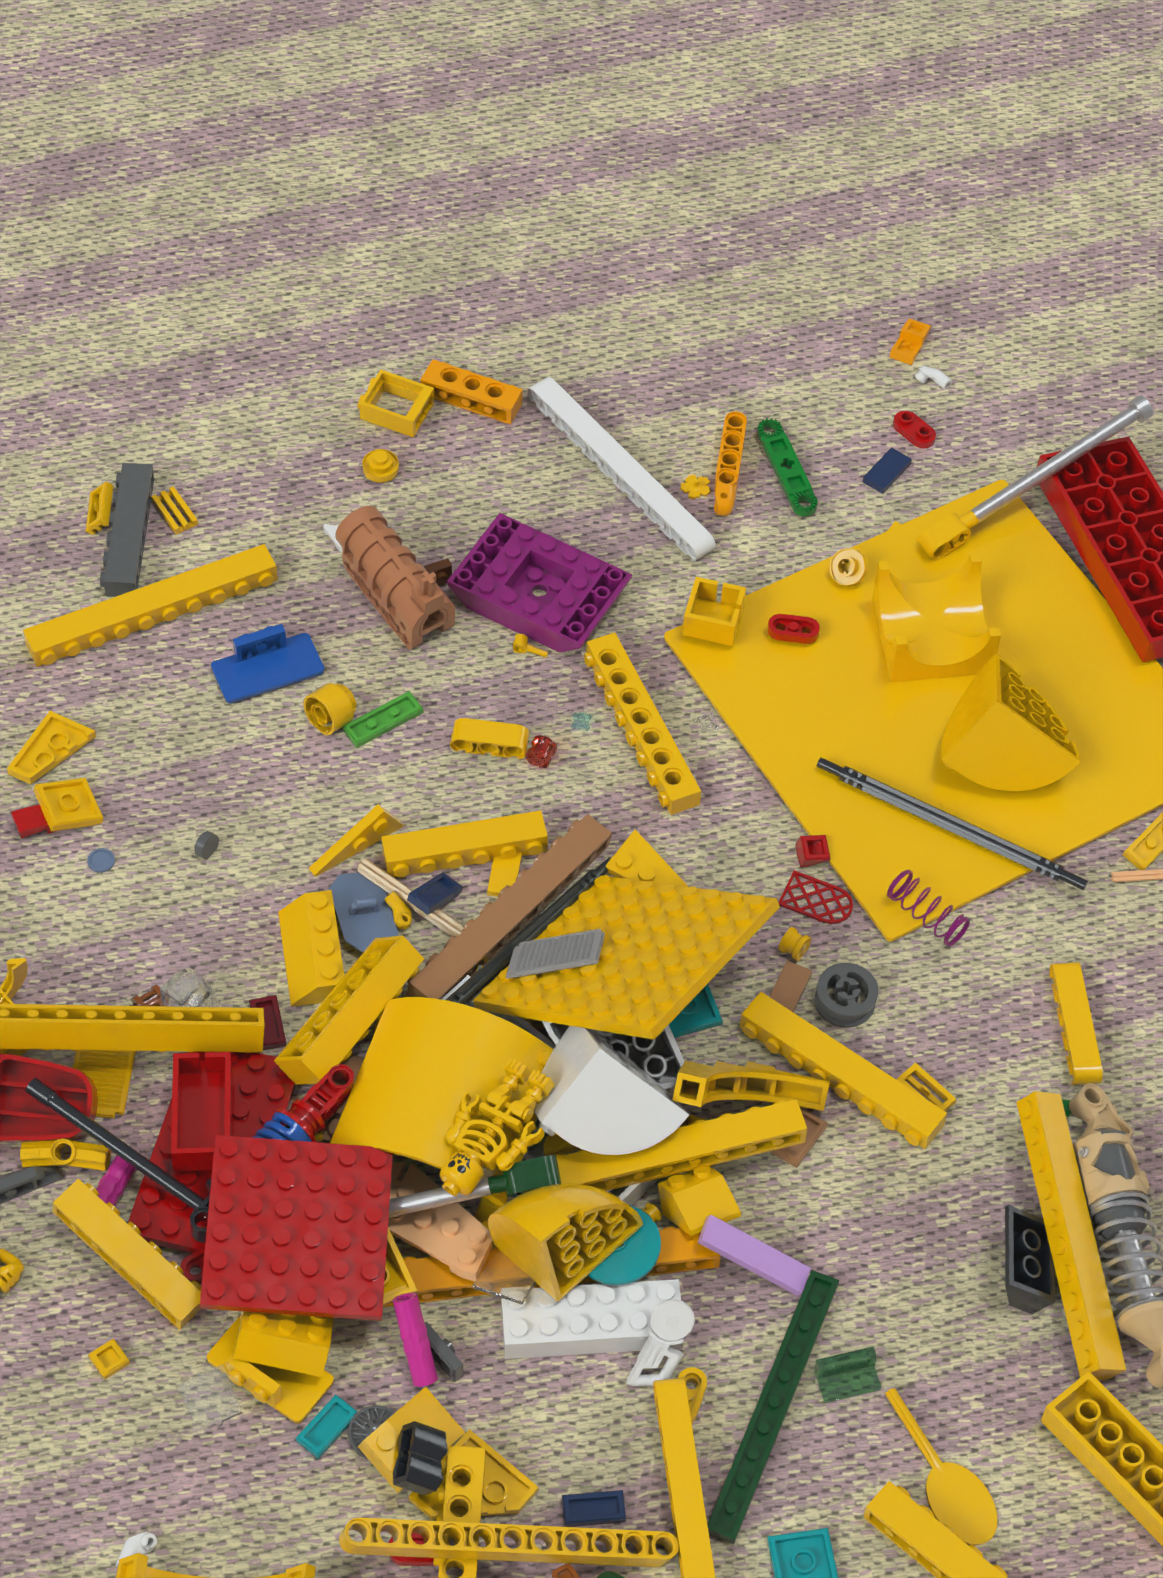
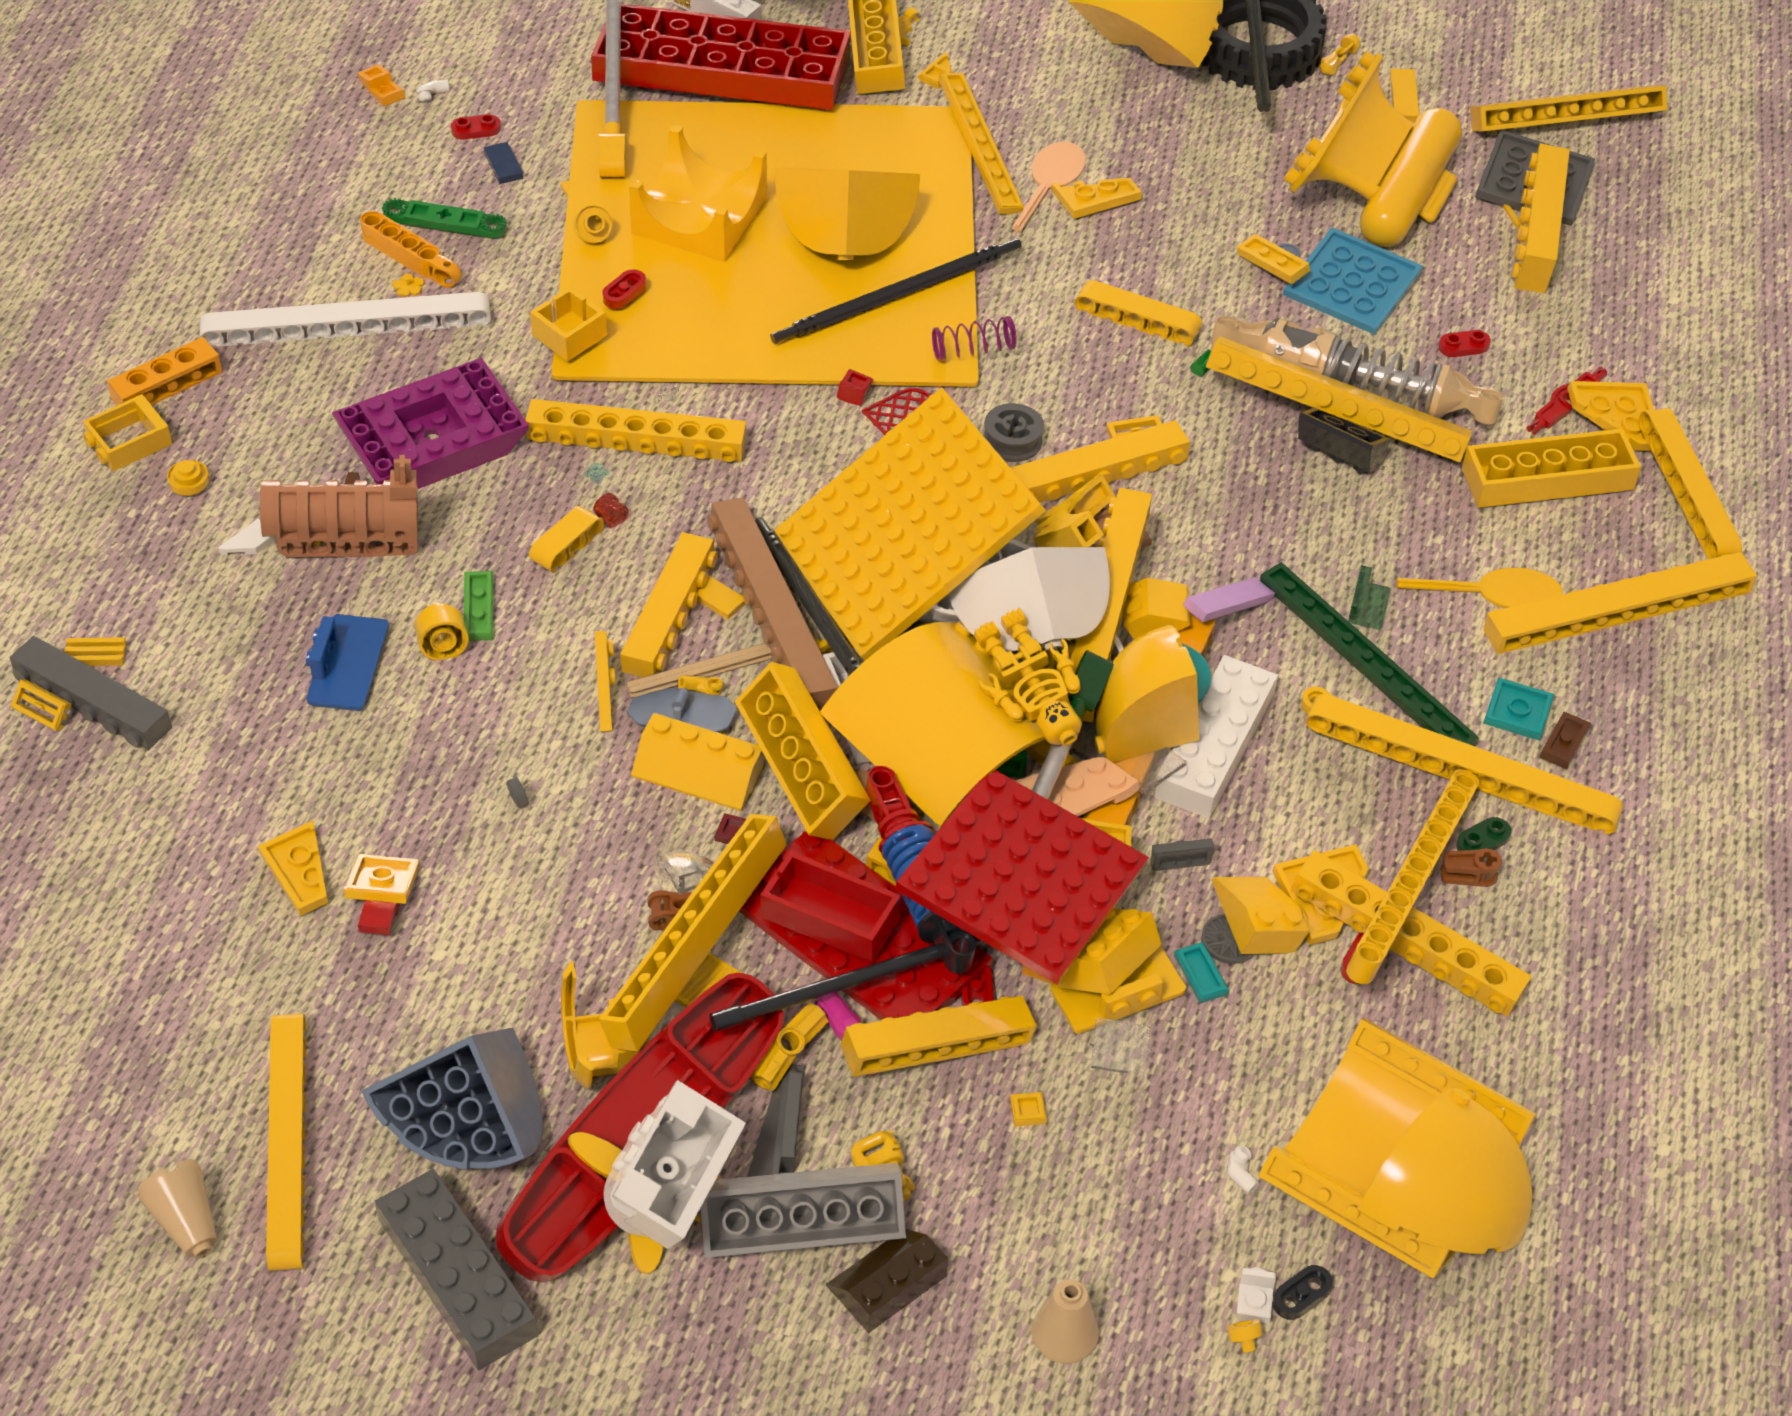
camera: 60 degrees left, 5 degrees down
(101, 860) = (463, 885): sand blue piece -> none
(150, 605) = (198, 718): yellow brick -> none
(415, 1339) = (1170, 856): dark pink axle -> none
(419, 1458) = (1294, 892): black brick -> none
(435, 893) = (705, 649): dark blue tile -> none
(521, 645) = (481, 474): yellow hand -> none
(556, 953) = (863, 572): light grey window -> none
(593, 1508) = (1391, 821): dark blue tile -> none
(641, 862) = (778, 502): yellow wing -> none
(669, 1325) = (1281, 701): white piece -> none

